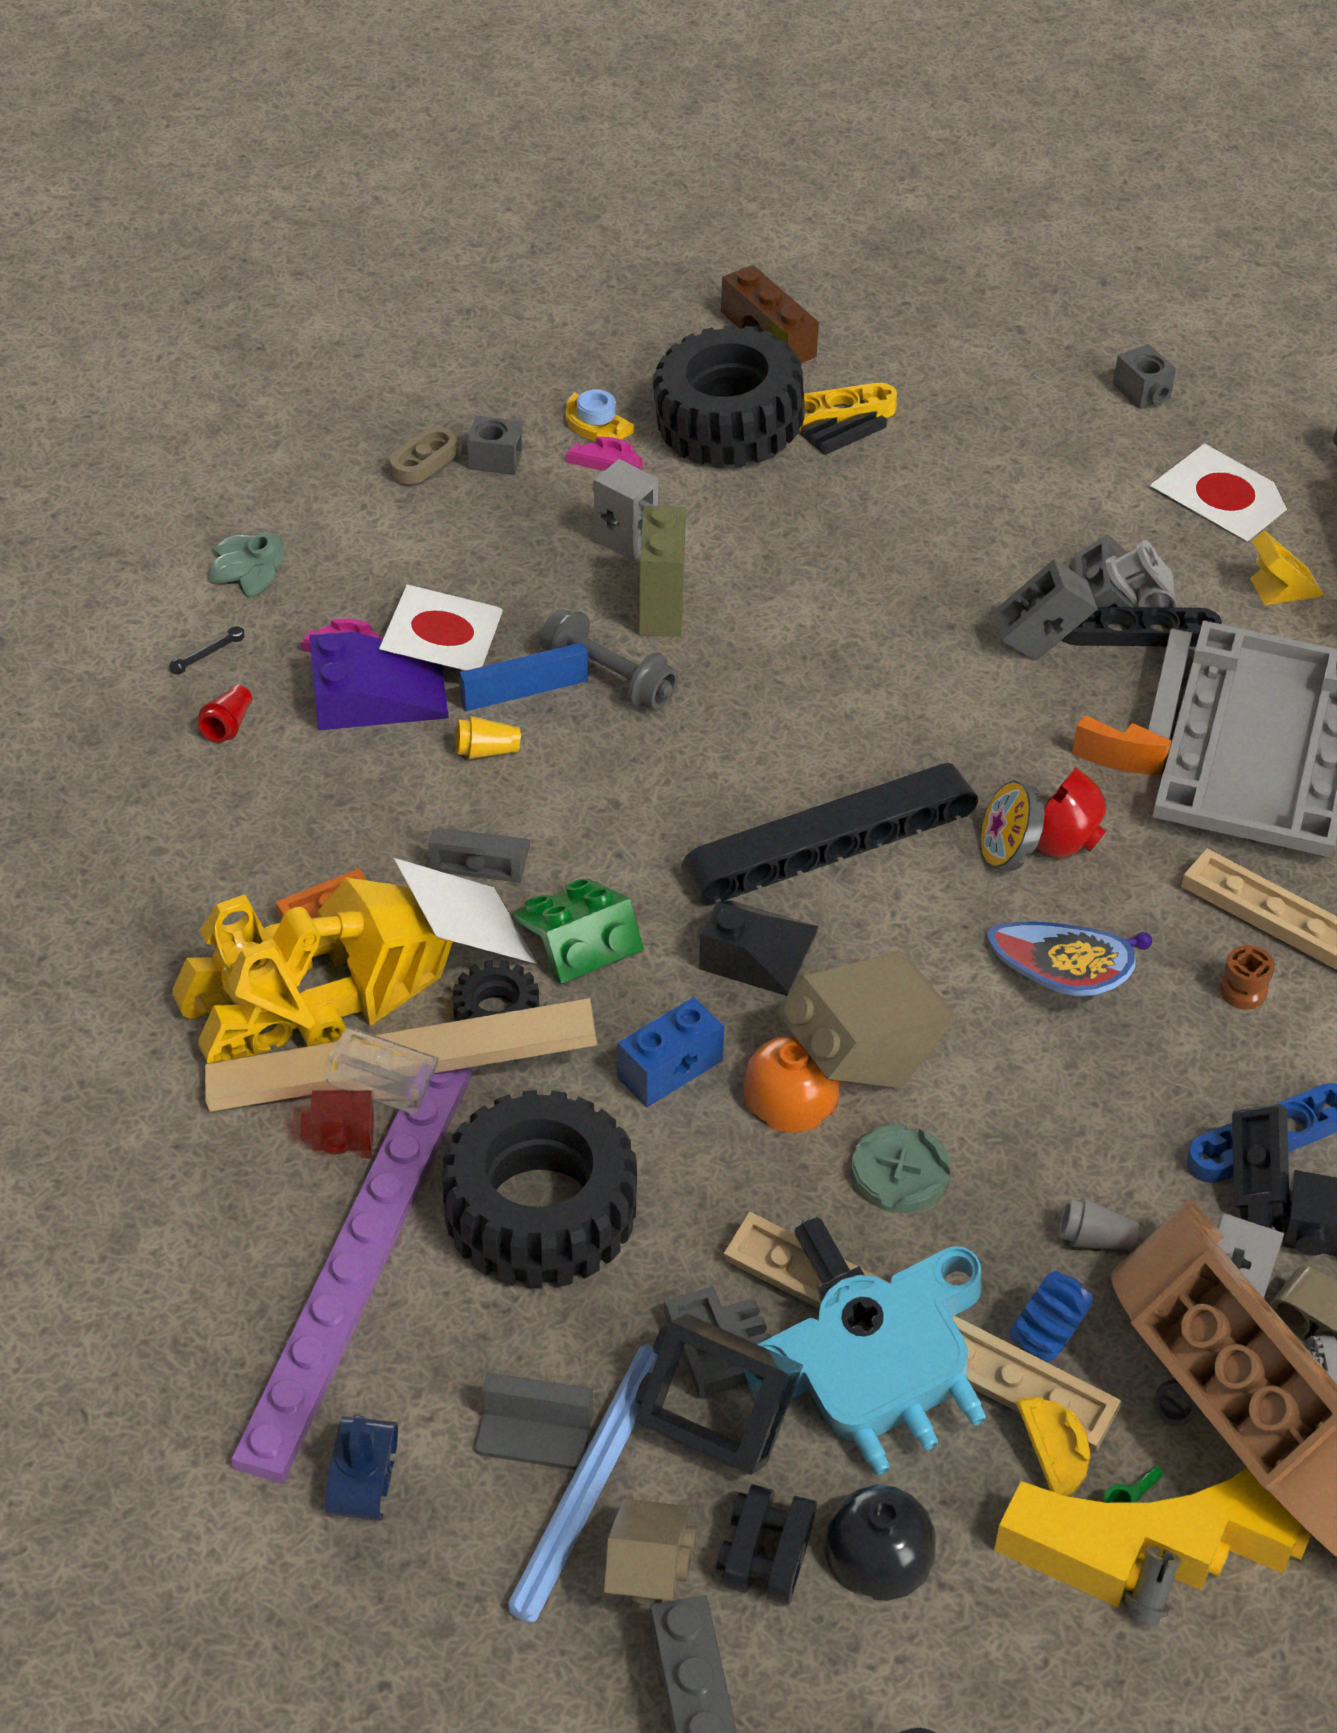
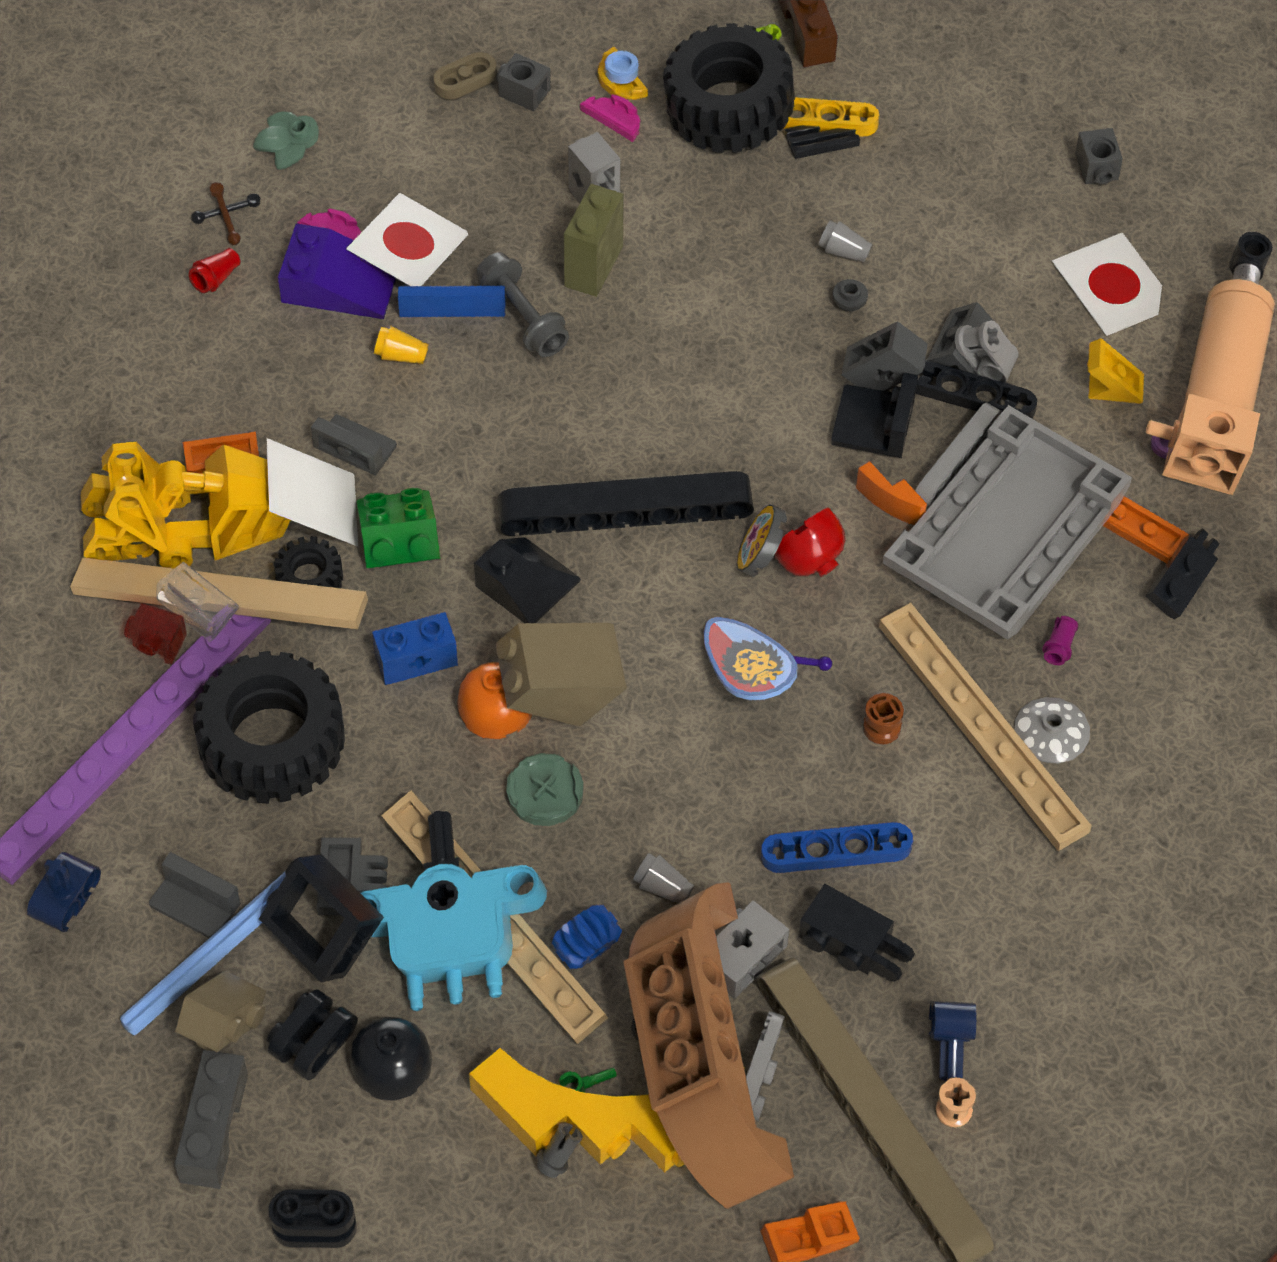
camera: 20 degrees right, 10 degrees up
(191, 632) = (217, 191): none -> reddish brown hinge
(926, 517) = (844, 242): none -> light grey cone
(960, 566) = (847, 301): none -> dark grey plate
(1058, 1443) = (547, 1030): yellow tile -> none
(1065, 677) = (875, 418): none -> black bracket
(1261, 1164) = (803, 874): black hinge -> none

